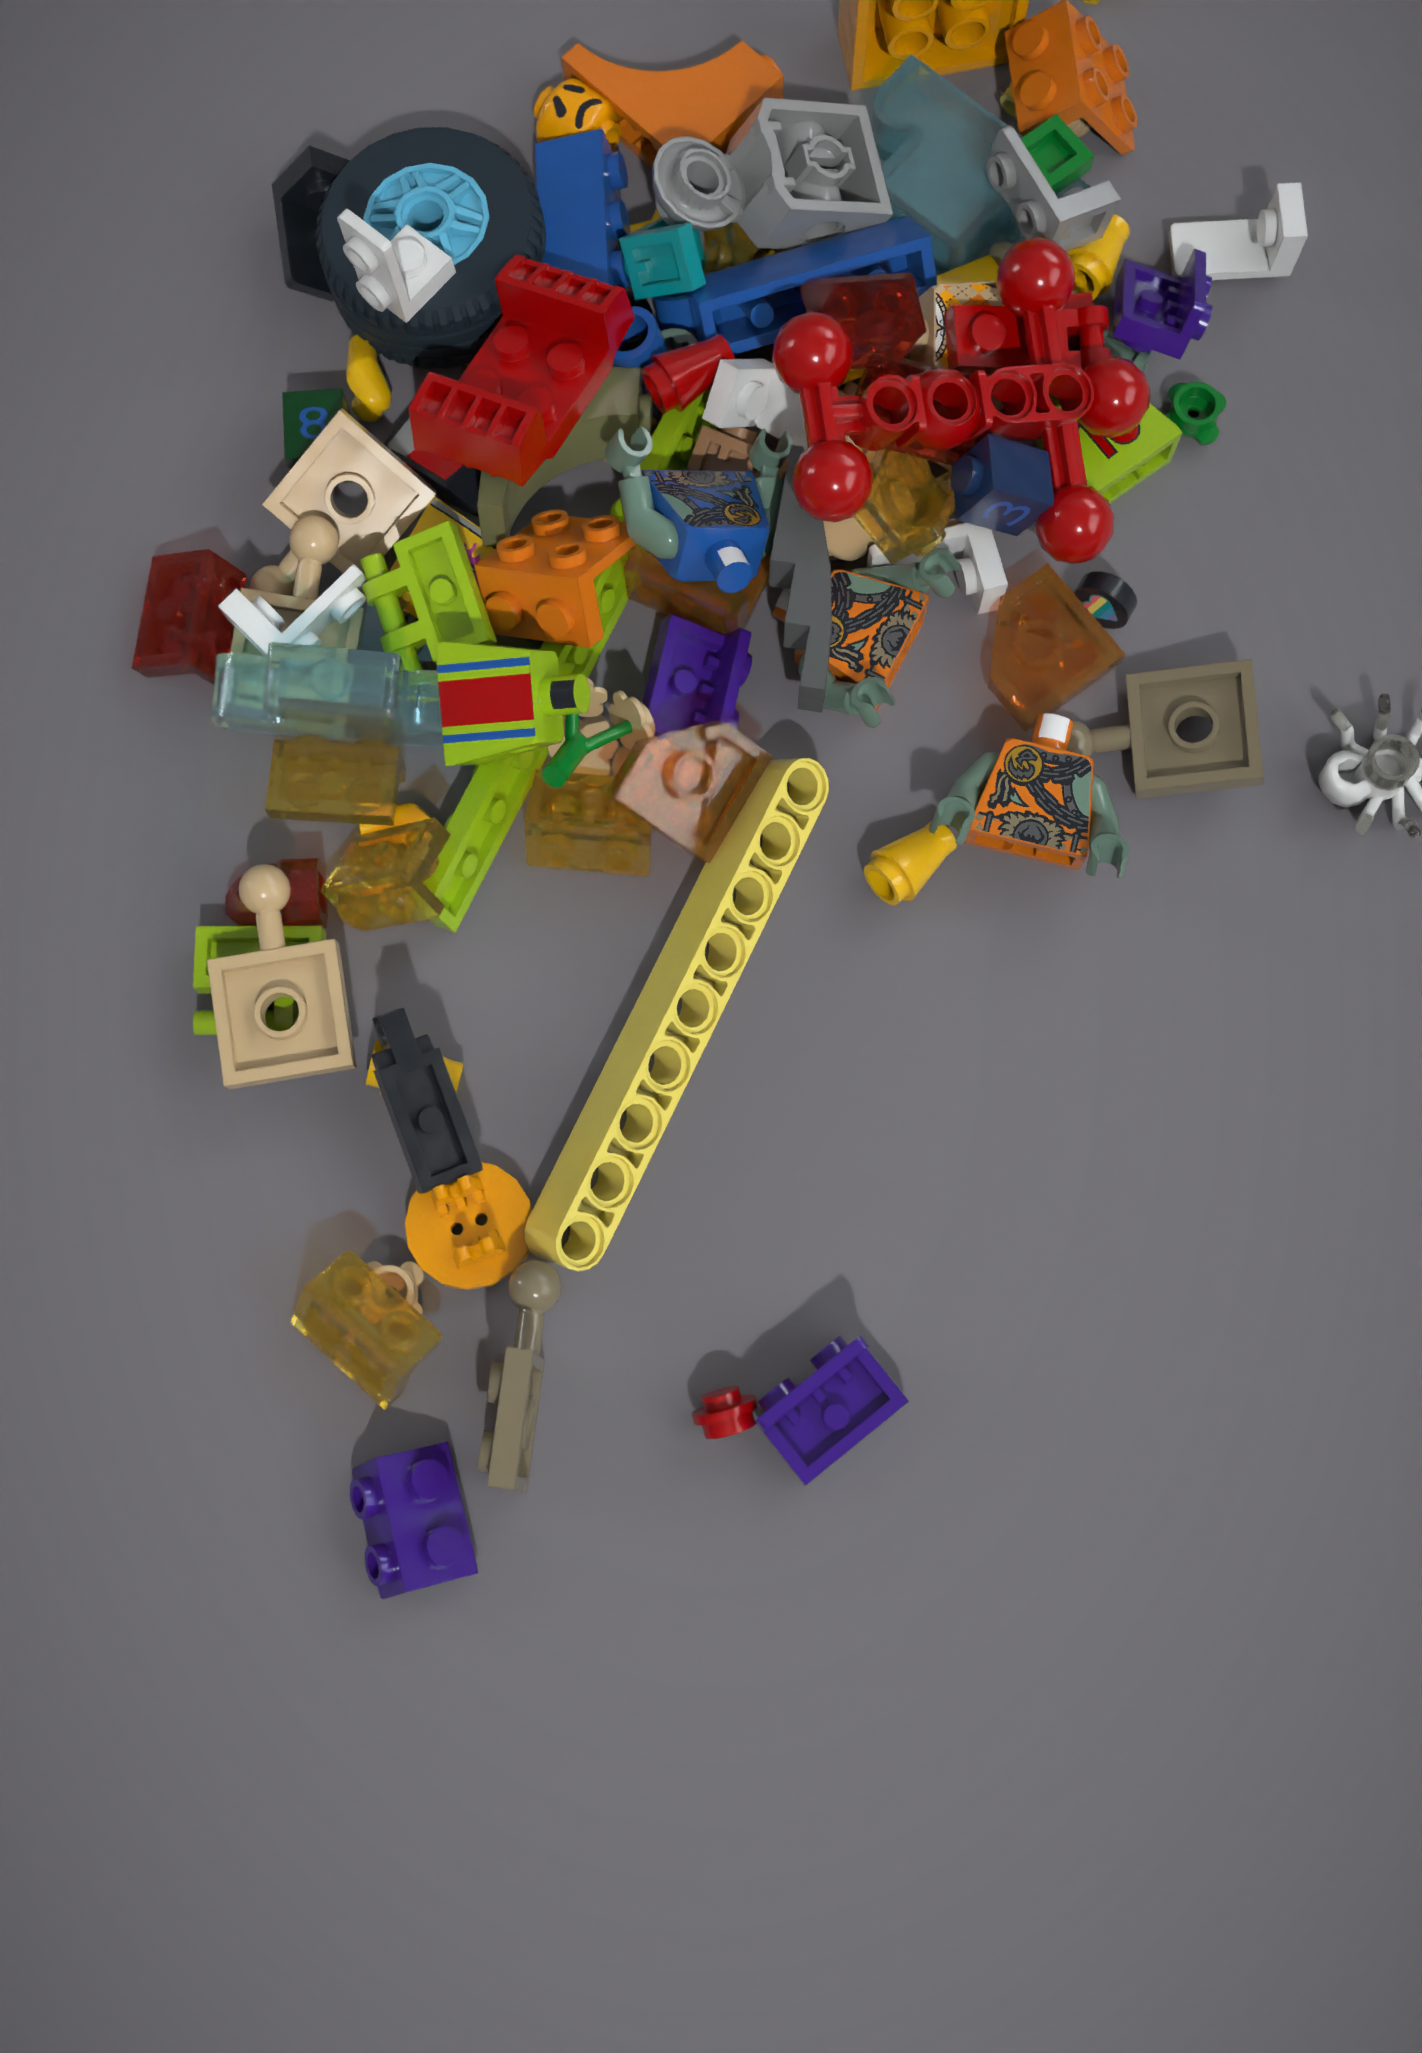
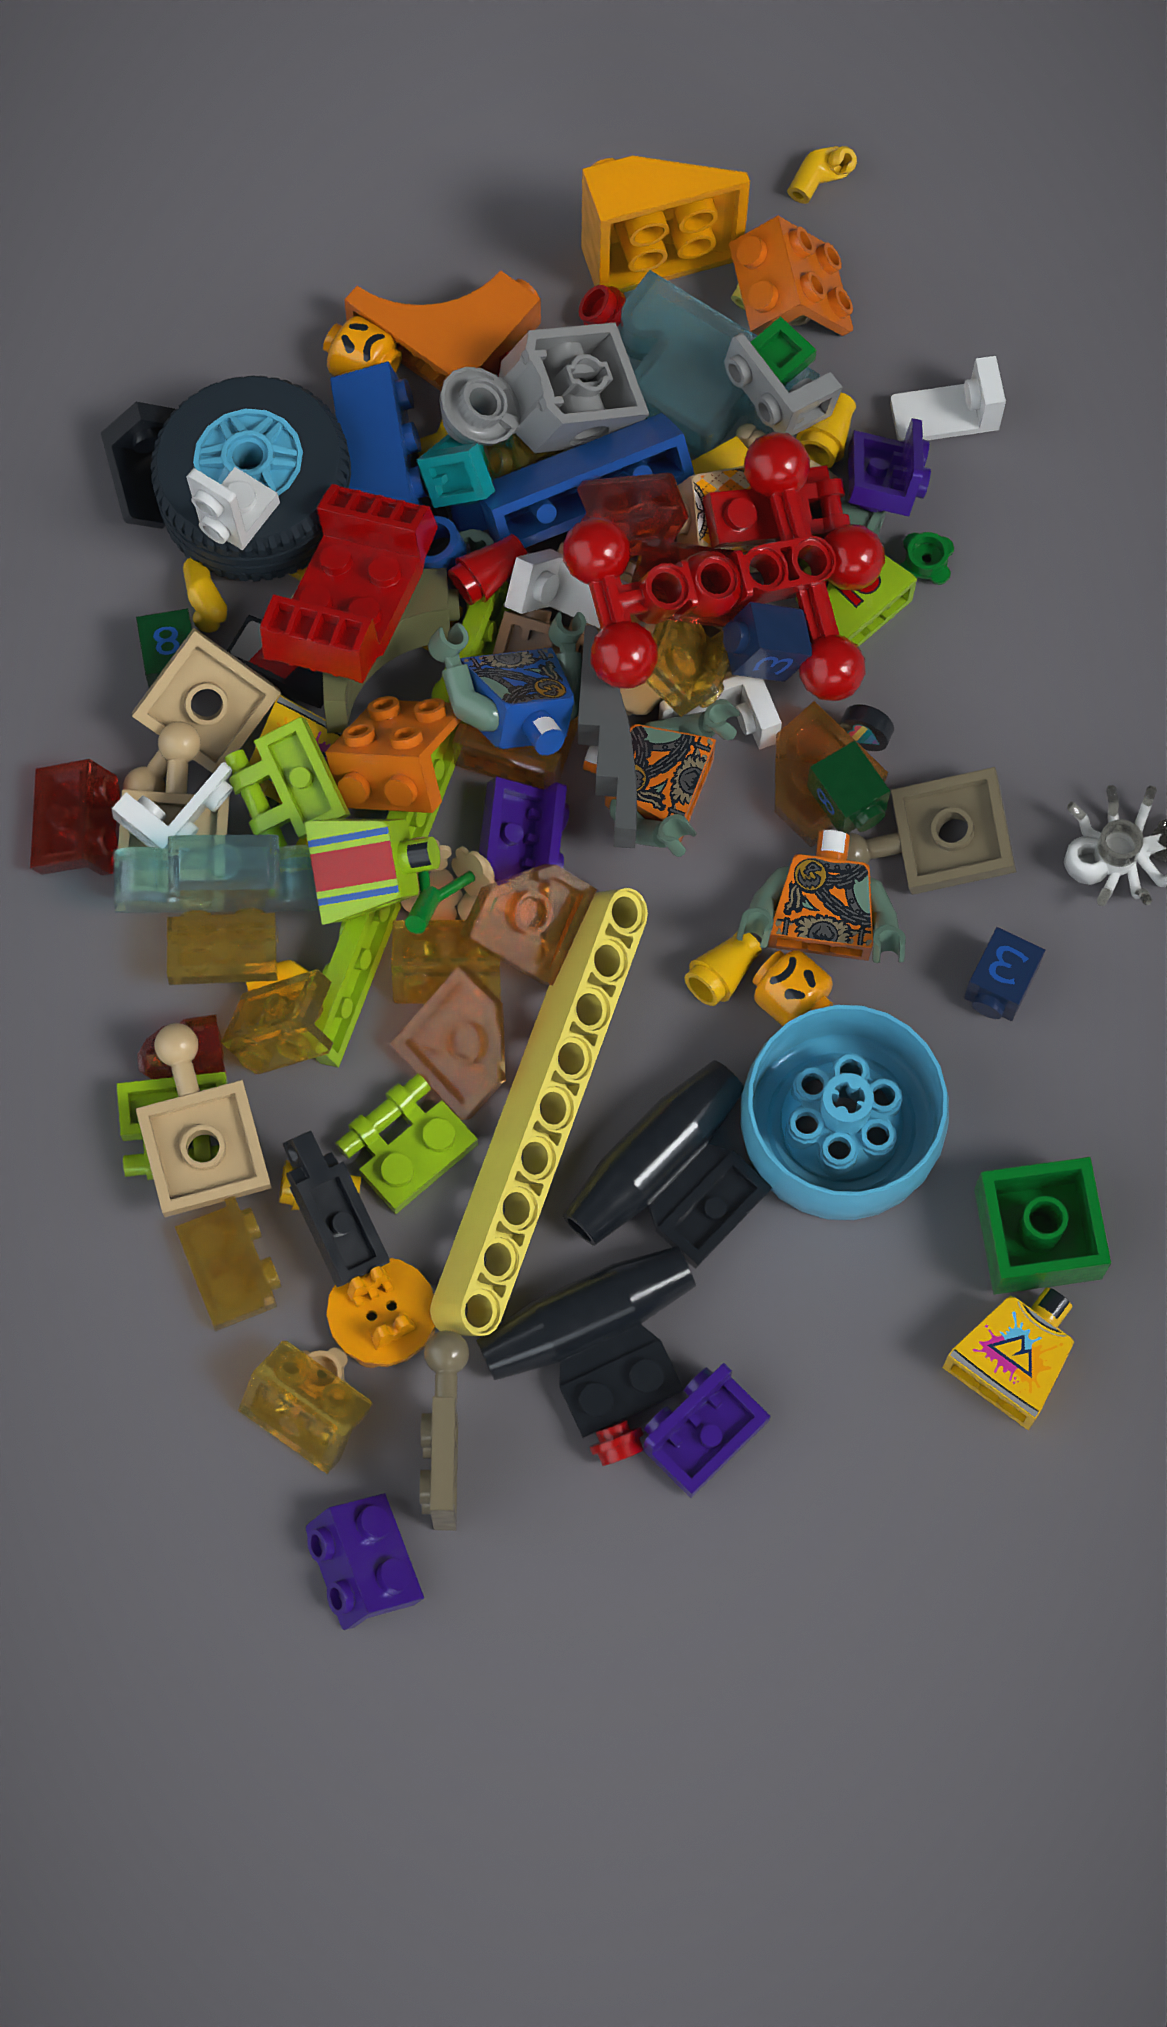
camera: 10 degrees left, 5 degrees down
(299, 1150) = (227, 1264): none -> clear yellow bracket
(532, 1045) = (417, 1155): none -> lime plate
(593, 919) = (458, 1042): none -> clear orange plate
(713, 1276) = (596, 1333): none -> black plate
(821, 1089) = (670, 1167): none -> black plate
(855, 89) = (602, 305): none -> red plate
(988, 896) = (791, 986): none -> light orange head
(1079, 668) = (849, 789): none -> dark green brick
(1092, 990) = (872, 1055): none -> medium azure wheel
(1208, 1359) = (1015, 1355): none -> yellow torso
(1236, 904) = (1003, 975): none -> dark blue brick
(1255, 1207) = (1042, 1225): none -> green brick

